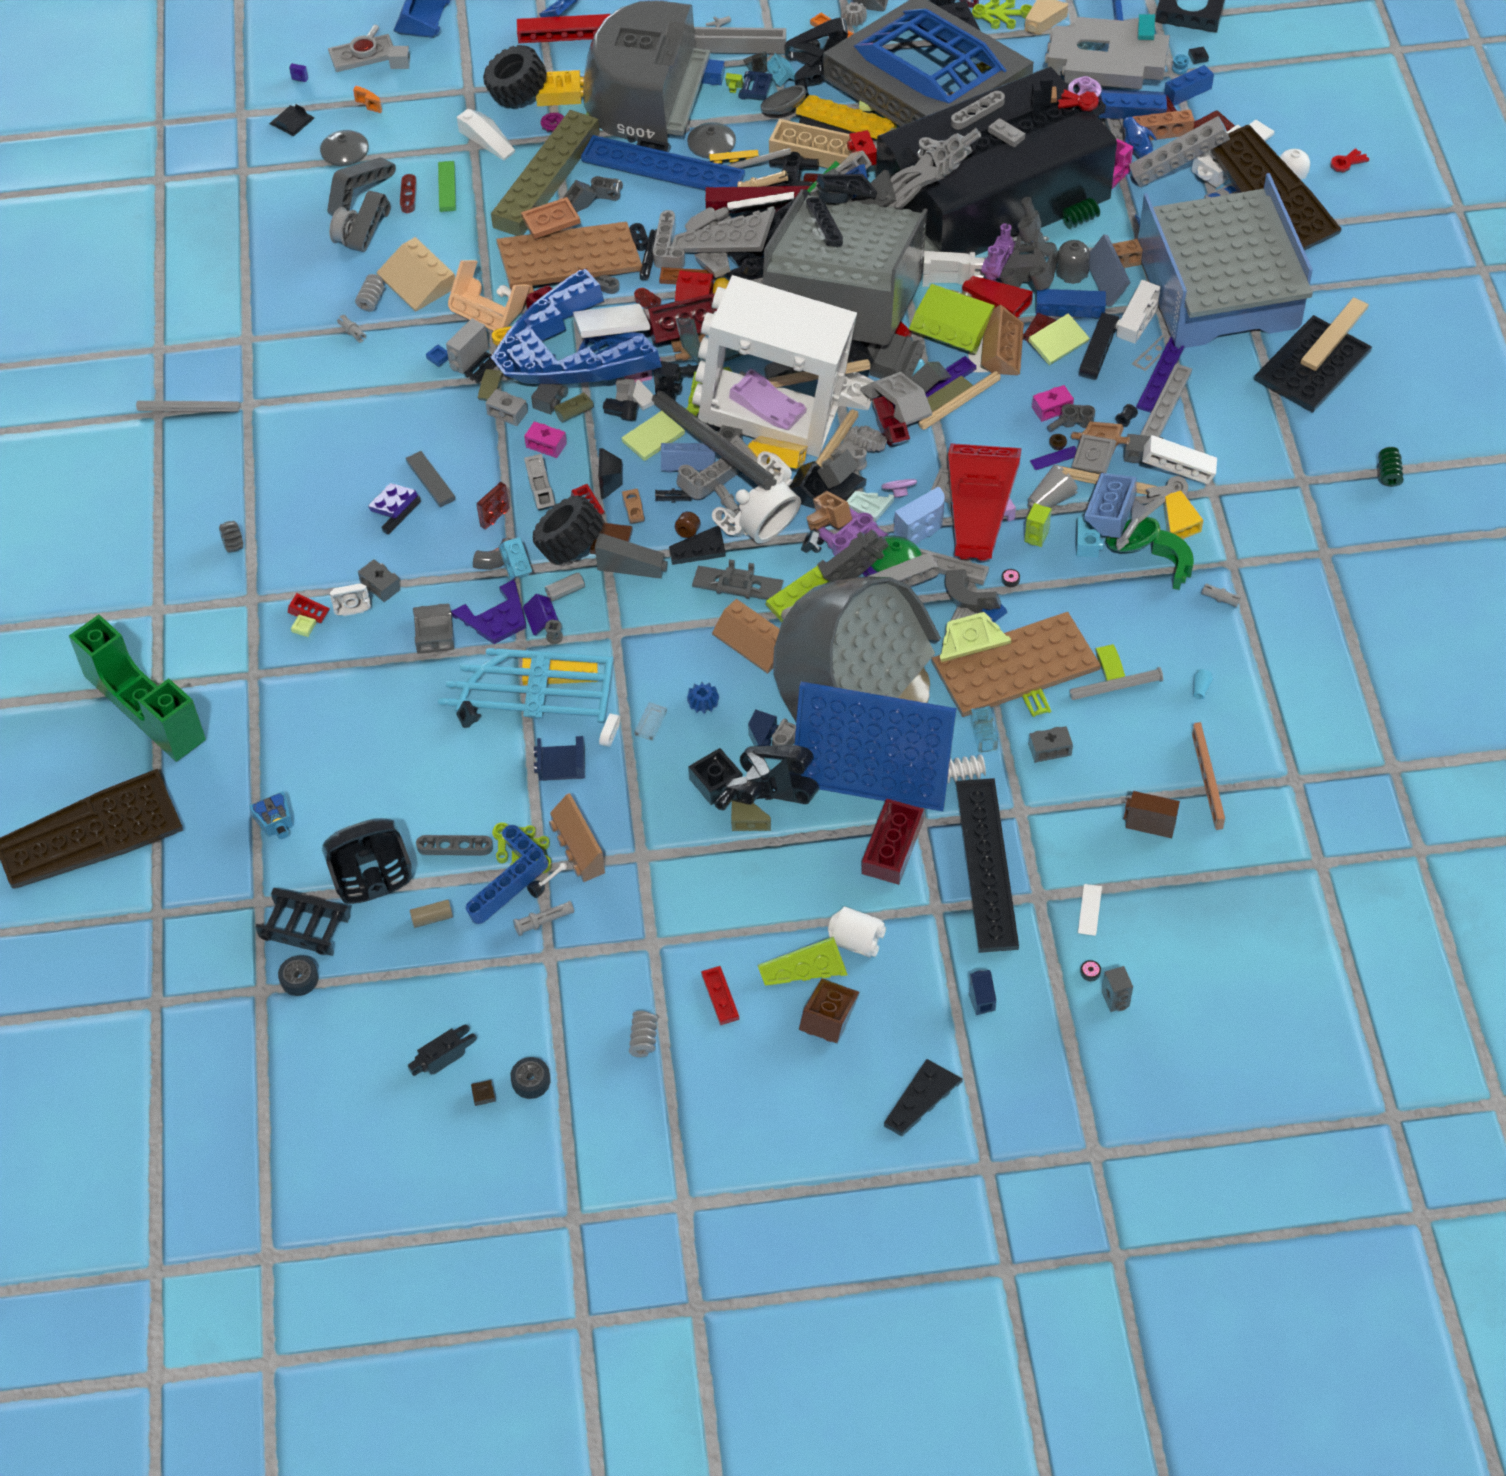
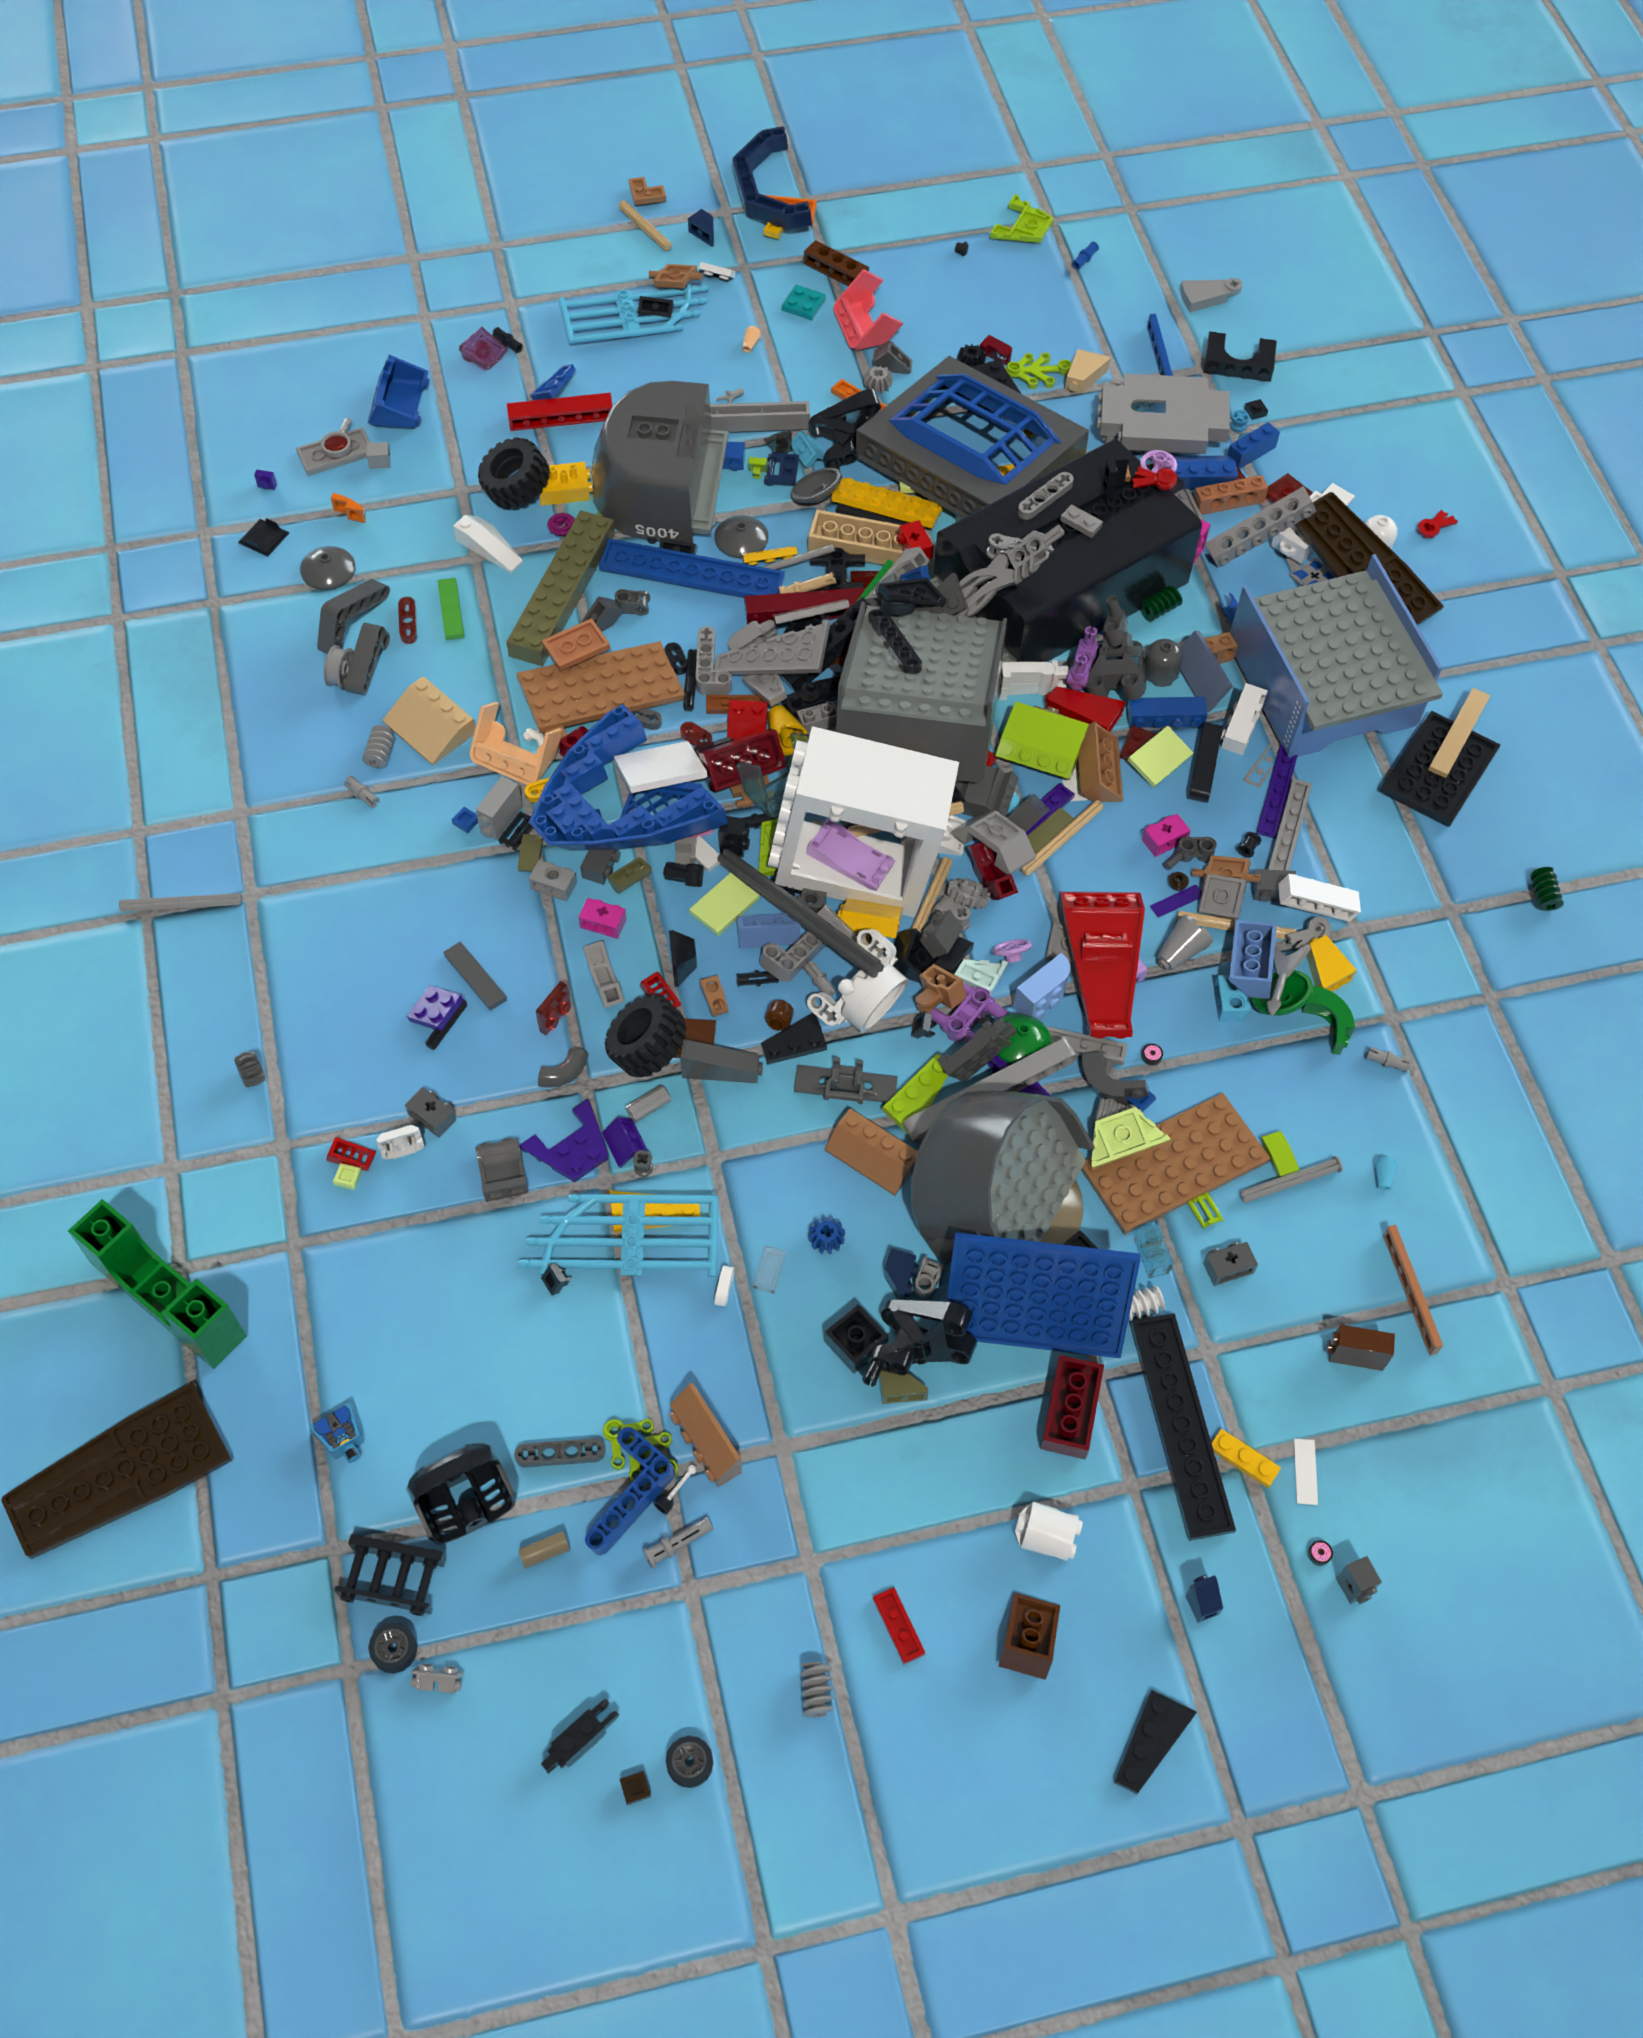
camera: 10 degrees left, 5 degrees up
(339, 1002) = (446, 1678): none -> light grey hinge
(515, 558) = (587, 1075): medium azure brick -> none
(560, 761) = (671, 1330): dark blue panel -> none
(804, 964) = (1001, 1574): lime wing -> none
(1037, 525) = (1175, 989): lime brick -> none
(1038, 894) = (1245, 1458): none -> yellow plate
(1138, 137) = (1211, 510): blue animal -> none
(1146, 27) = (1203, 382): teal tile -> none

